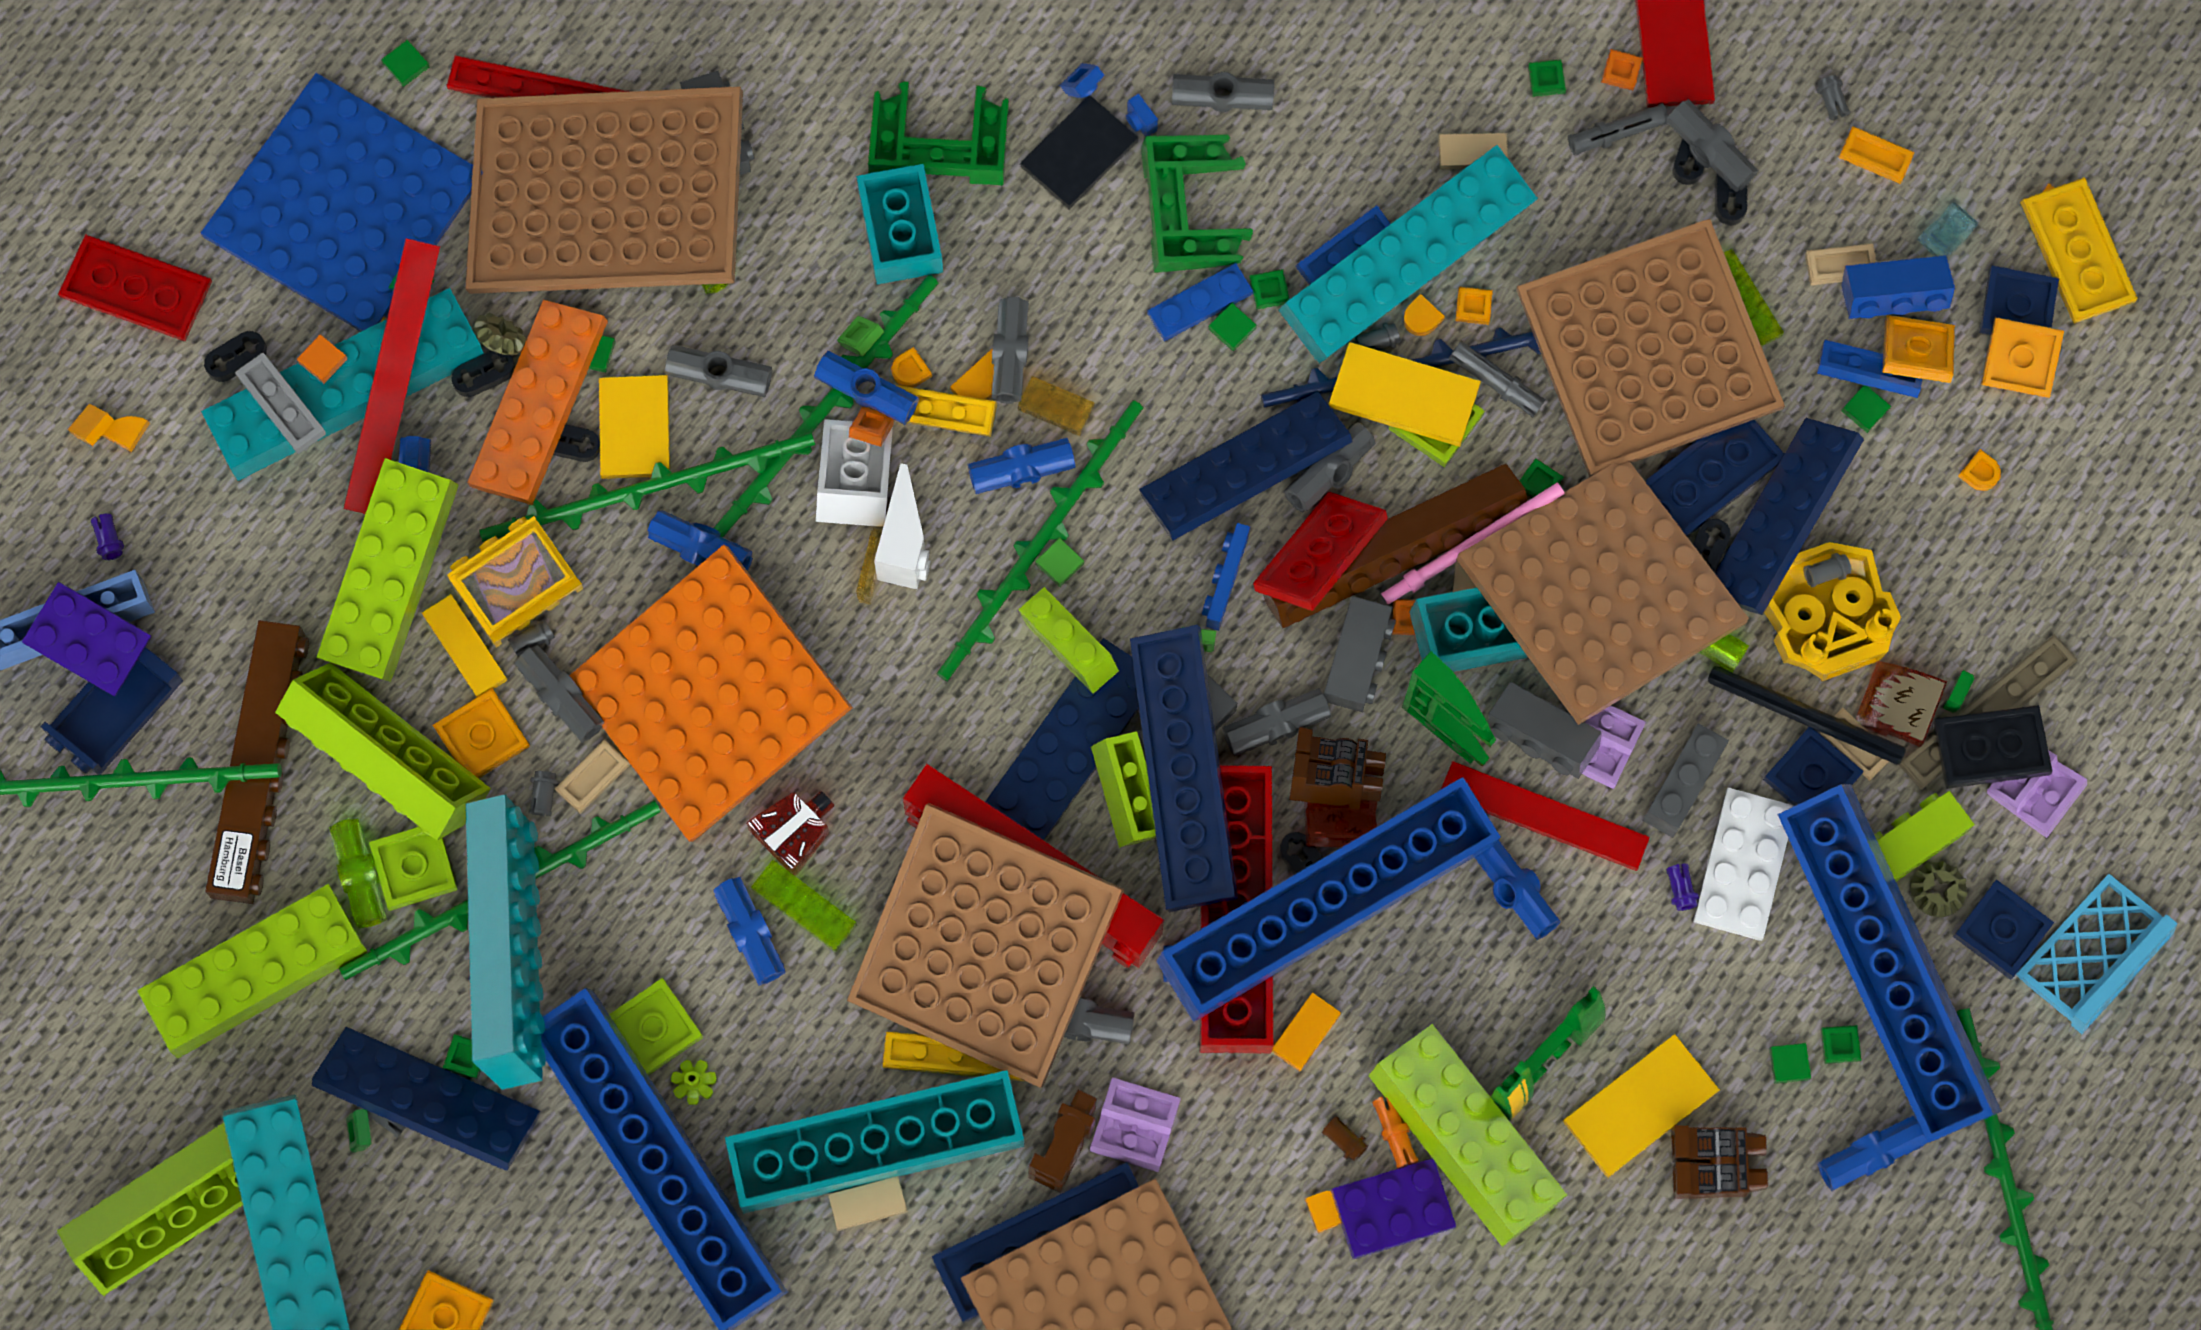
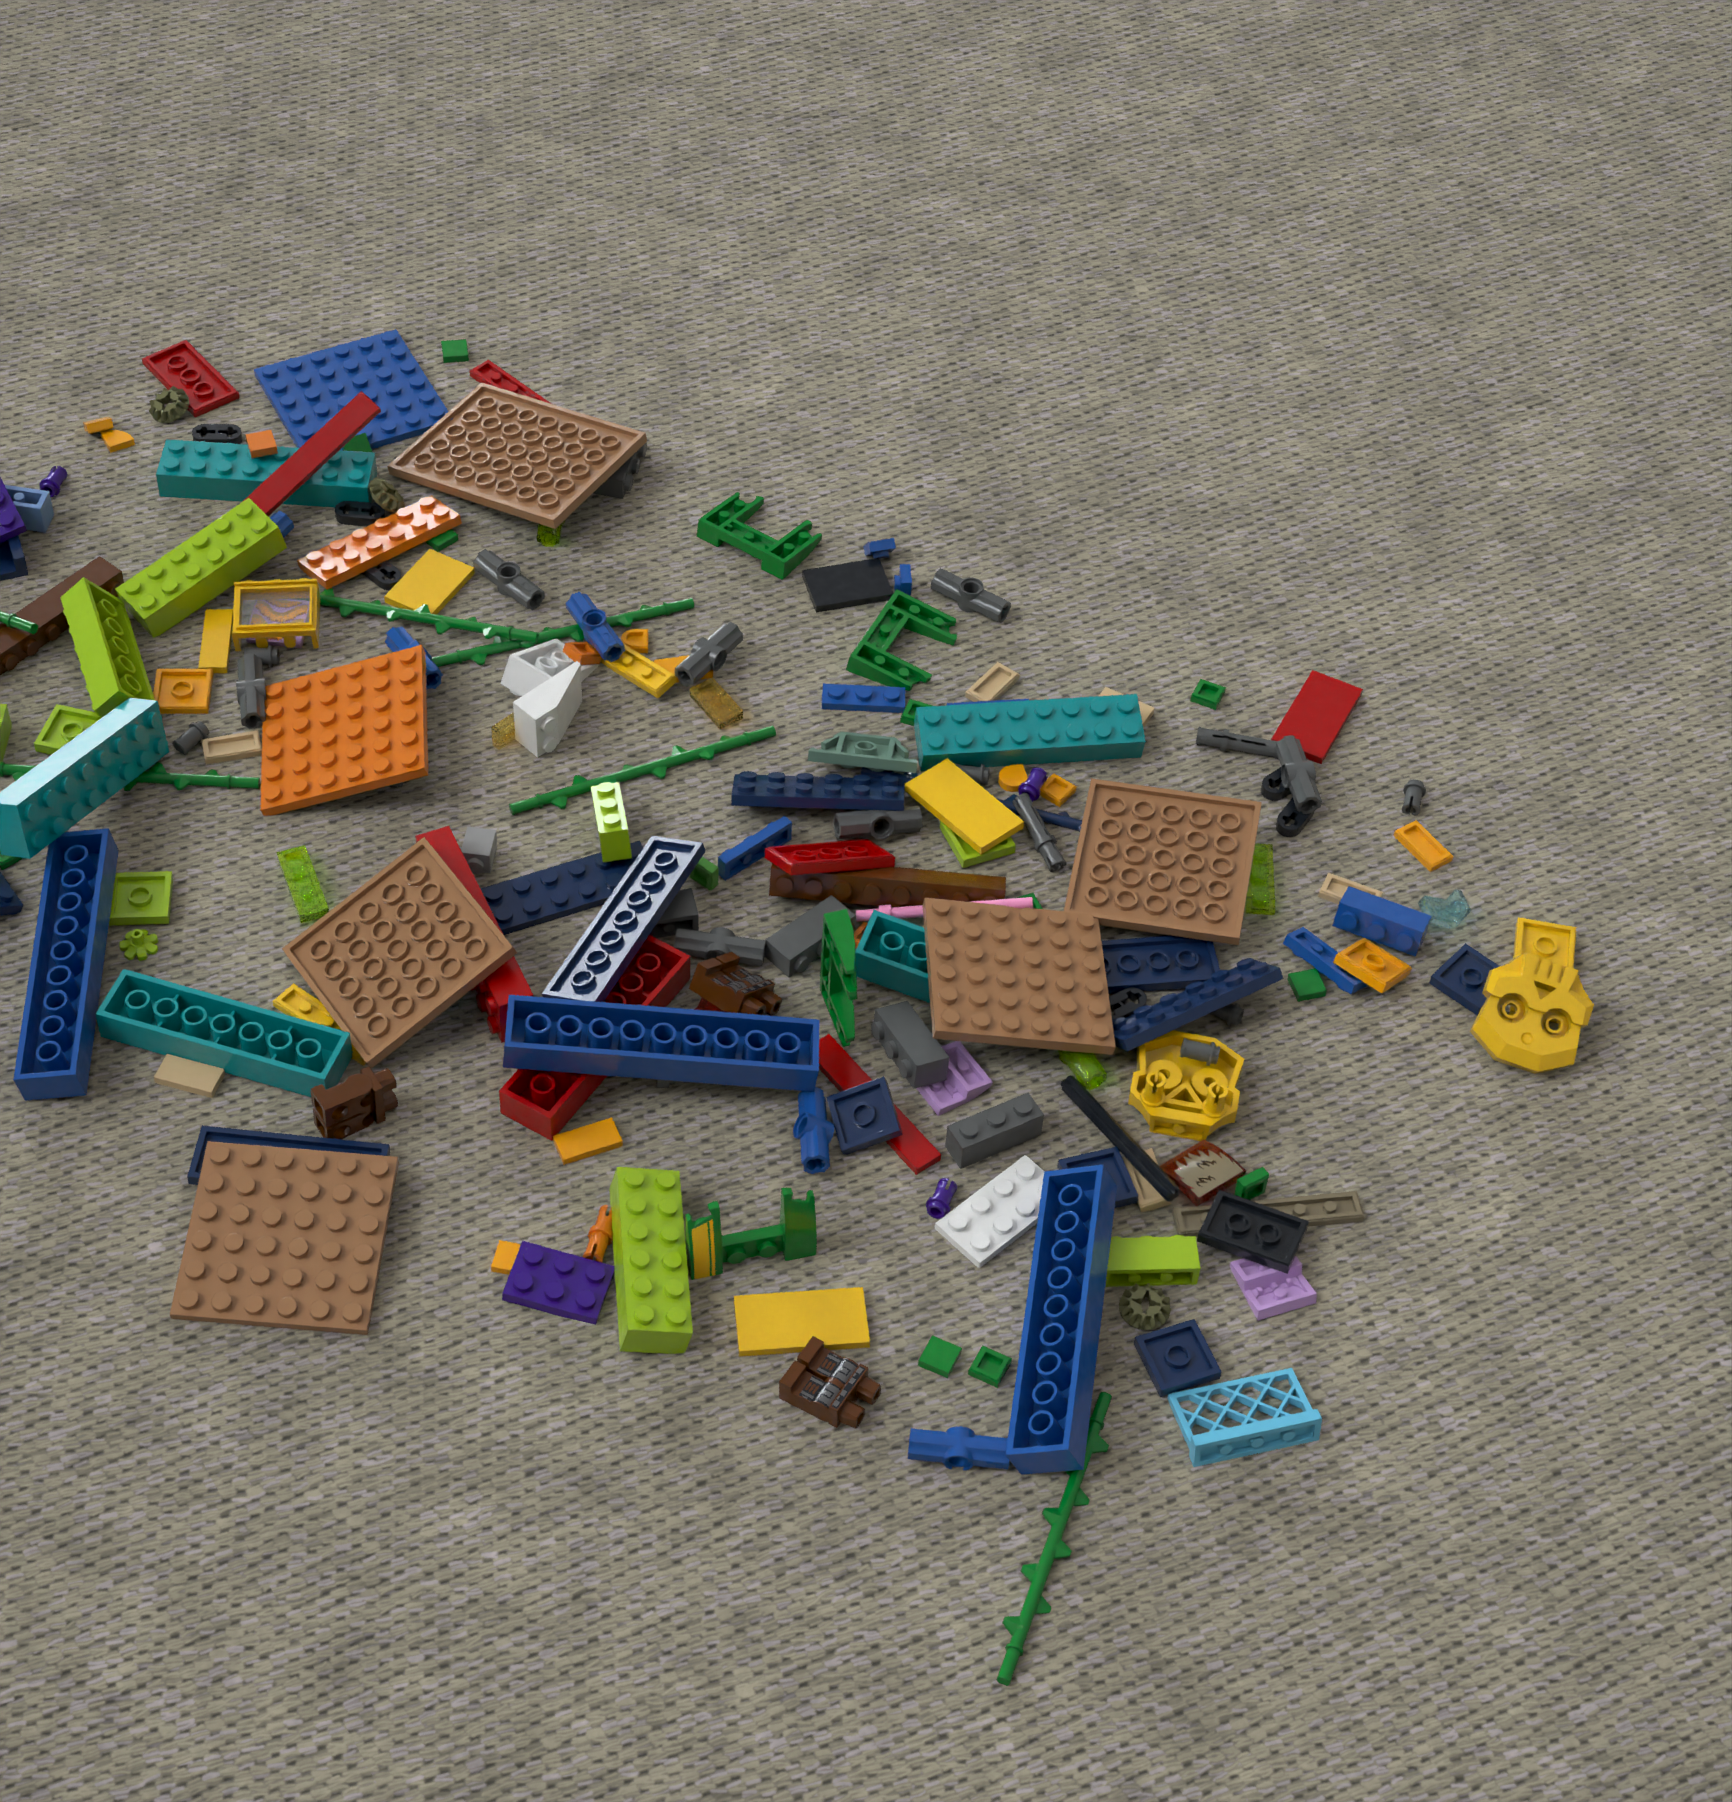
camera: 30 degrees right, 25 degrees down
(160, 353) = (174, 410): none -> olive gear
(280, 403) = (214, 450): light grey plate -> none
(357, 873) = (32, 718): clear neon green piece -> none
(749, 930) = (253, 877): blue piece -> none
(792, 829) = (334, 836): clear red torso -> none
(860, 335) = (617, 605): bright green tile -> none
(900, 224) = (692, 558): teal brick -> none
(953, 754) = (480, 849): none -> light grey brick
(1021, 465) = (664, 722): blue piece -> none
(1059, 562) = (646, 788): bright green tile -> none
(1100, 1023) = (435, 1046): dark grey piece -> none
(1126, 787) = (584, 907): lime brick -> none
(1135, 1124) = (416, 1130): lavender slope -> none
(1232, 327) = (875, 721): green tile -> none
(1257, 382) = (865, 751): none -> sand green wing
(1320, 202) = (992, 684): none -> tan tile
(1345, 1139) = (560, 1220): reddish brown pin -> none
(1453, 321) = (1033, 783): none -> dark purple pin
(1555, 842) = (864, 1116): none -> dark blue plate
(1622, 70) = (1266, 714): orange tile -> none
(1981, 472) = (1370, 1065): light orange tile -> none
(2022, 357) = (1449, 1008): light orange tile -> none
(2116, 355) = (1525, 1037): none -> yellow brick

